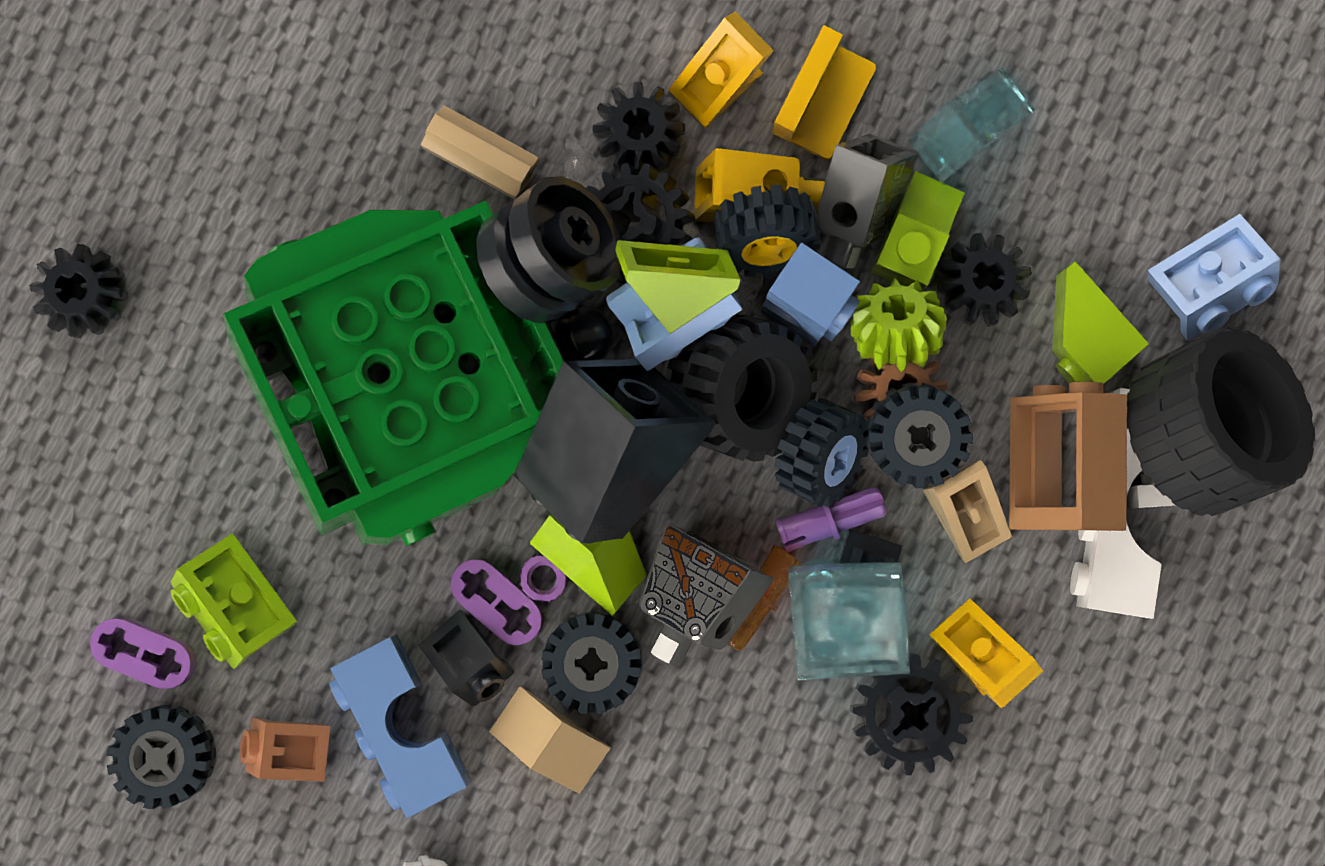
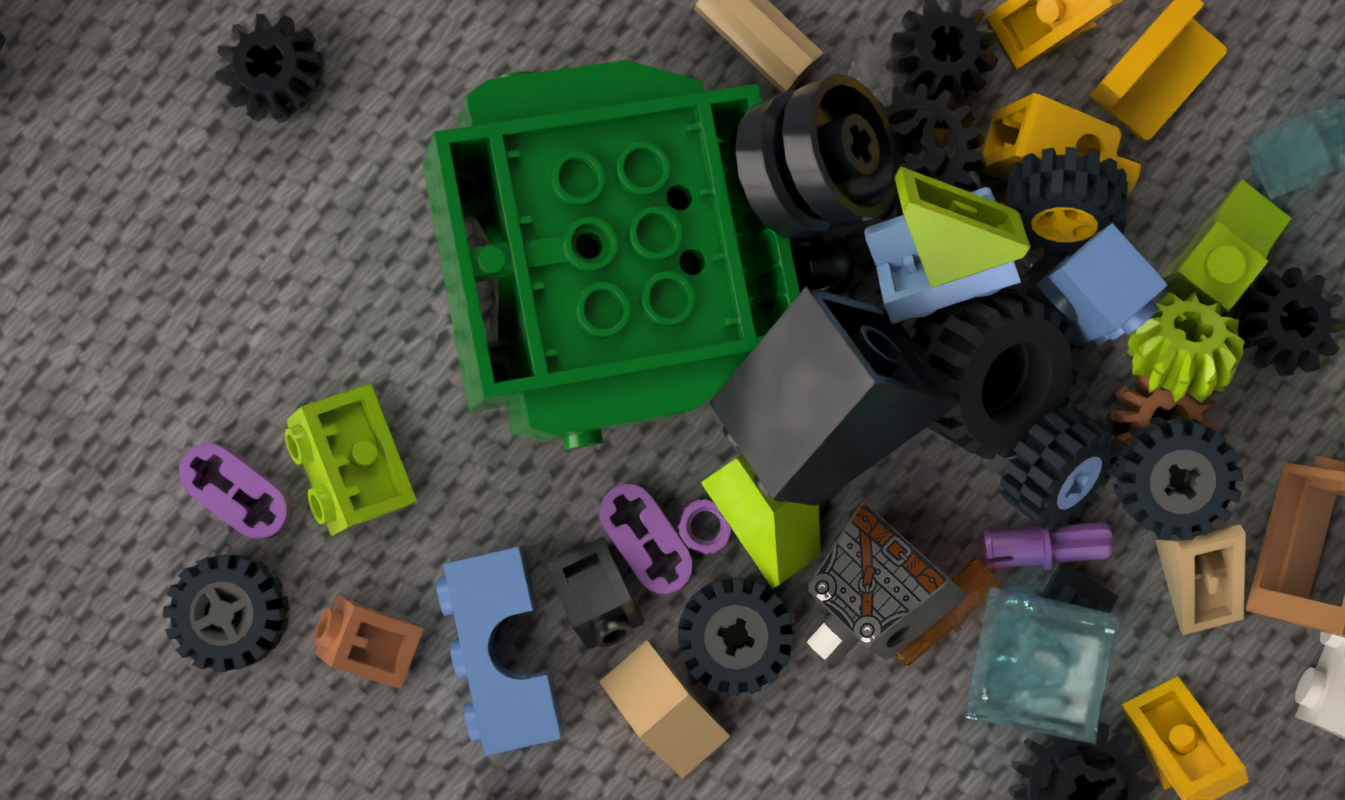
camera: 15 degrees right, 0 degrees up
(862, 195) = (1196, 173): dark grey torso -> none

